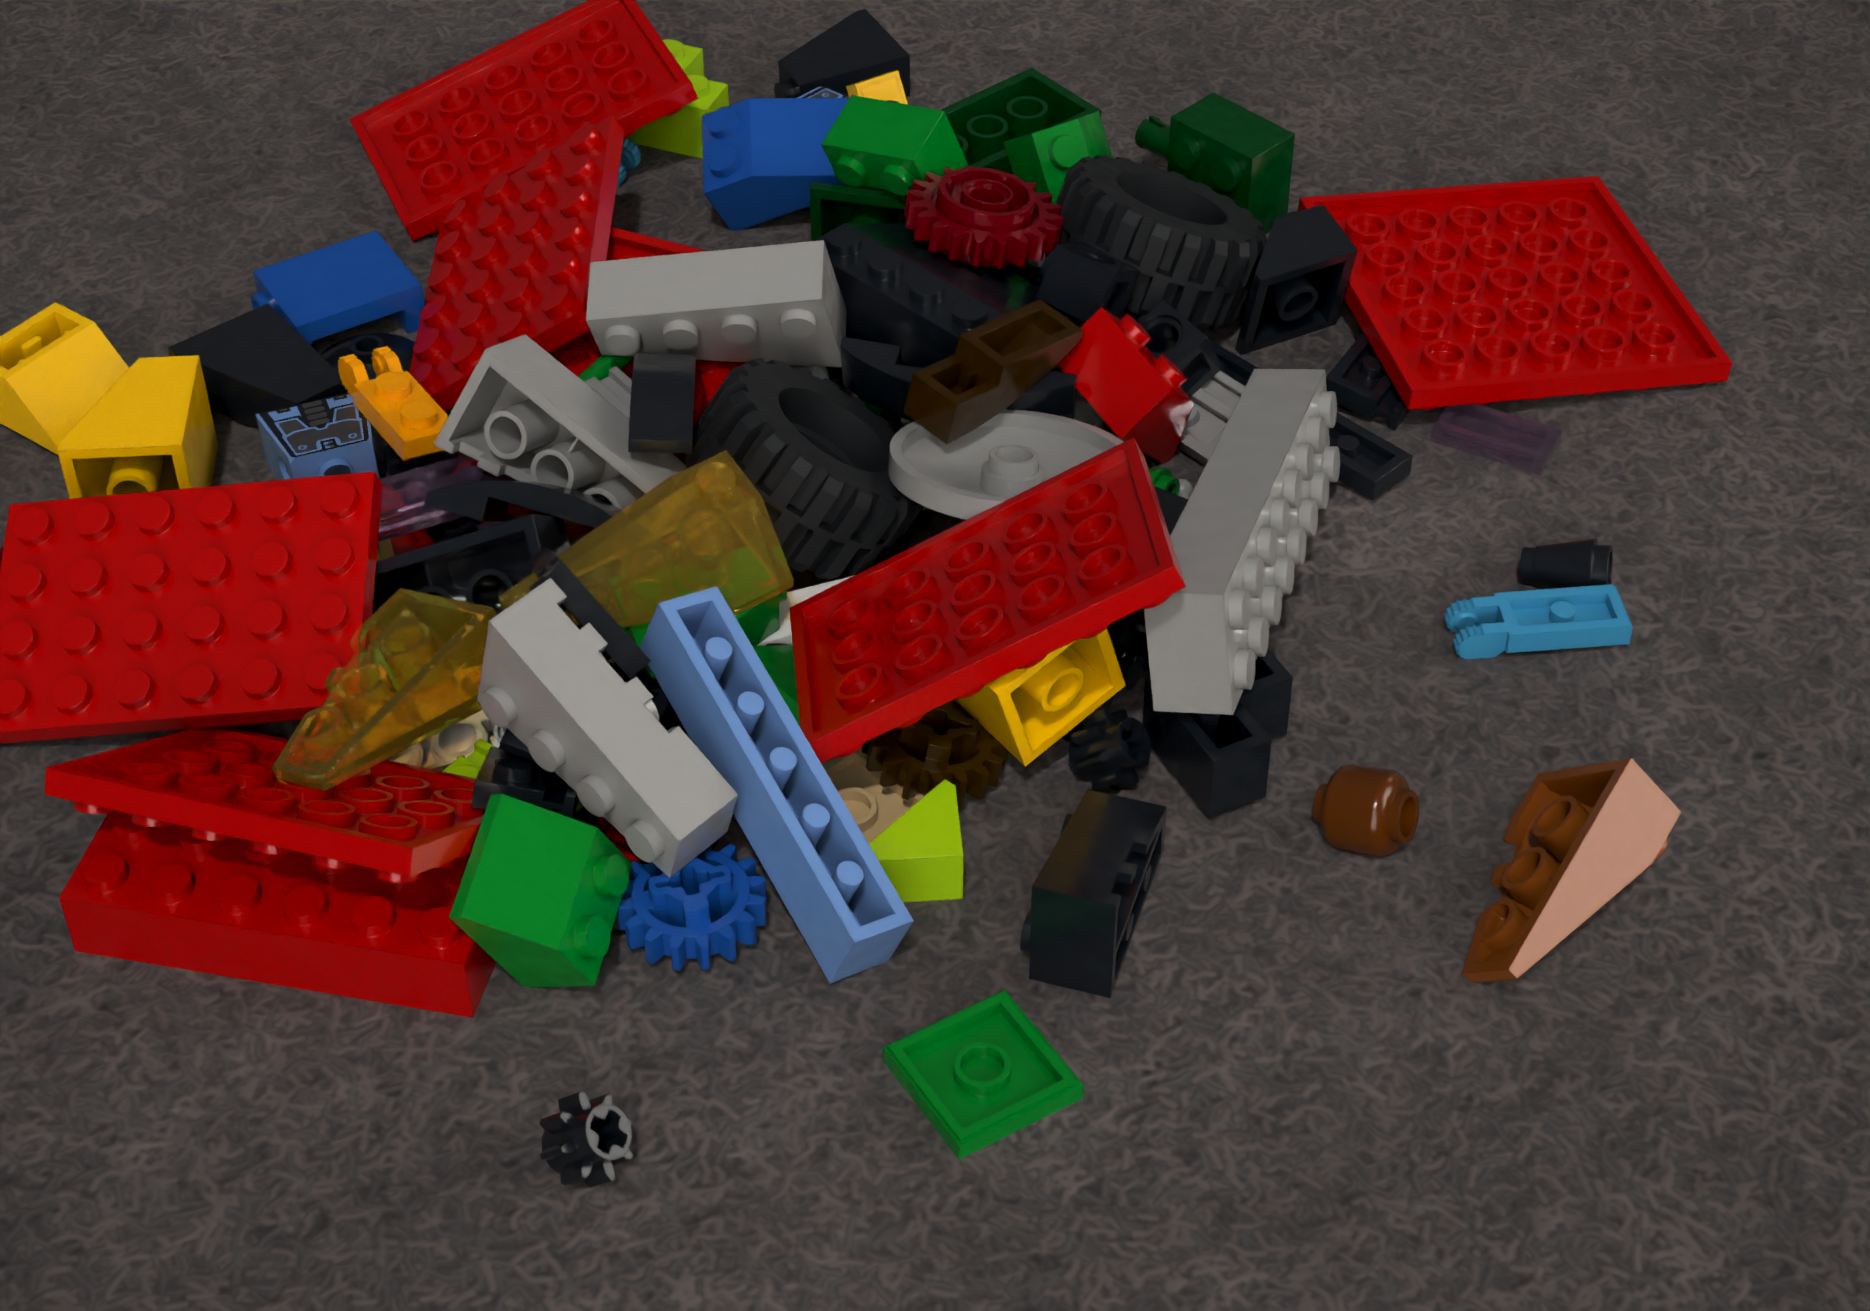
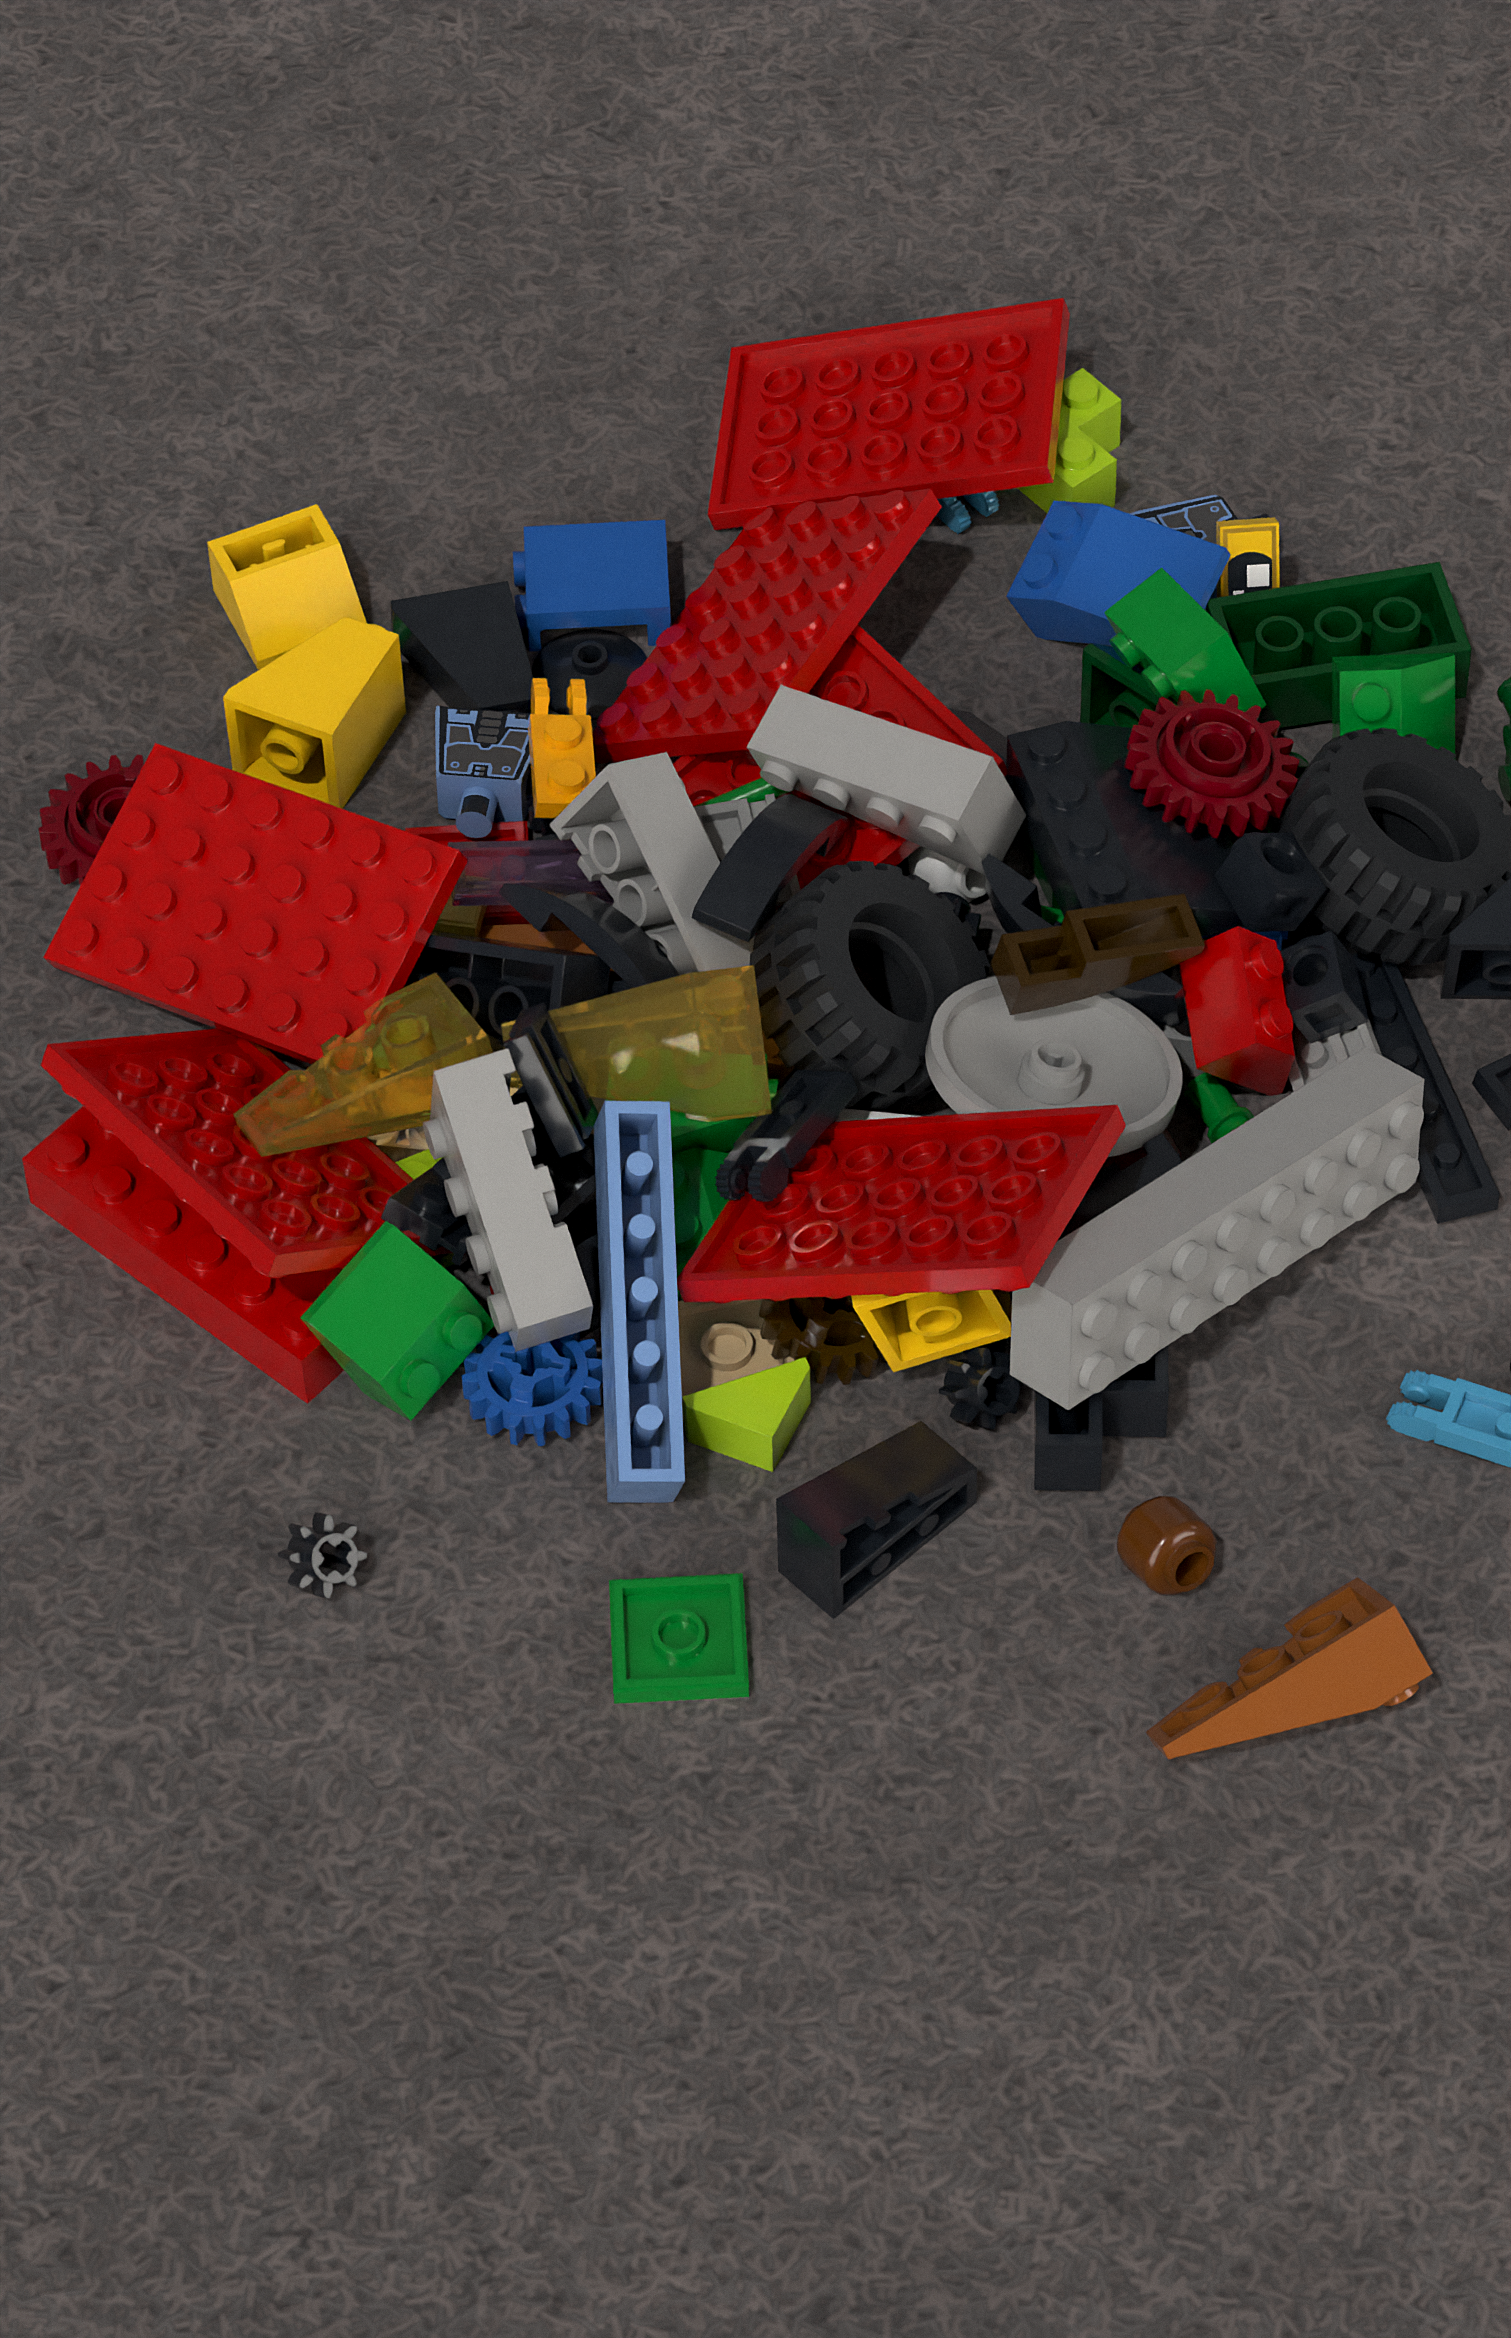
camera: 30 degrees right, 10 degrees up
(817, 598) = (781, 1139): none -> black hinge
(843, 56) = (1272, 467): black slope -> none

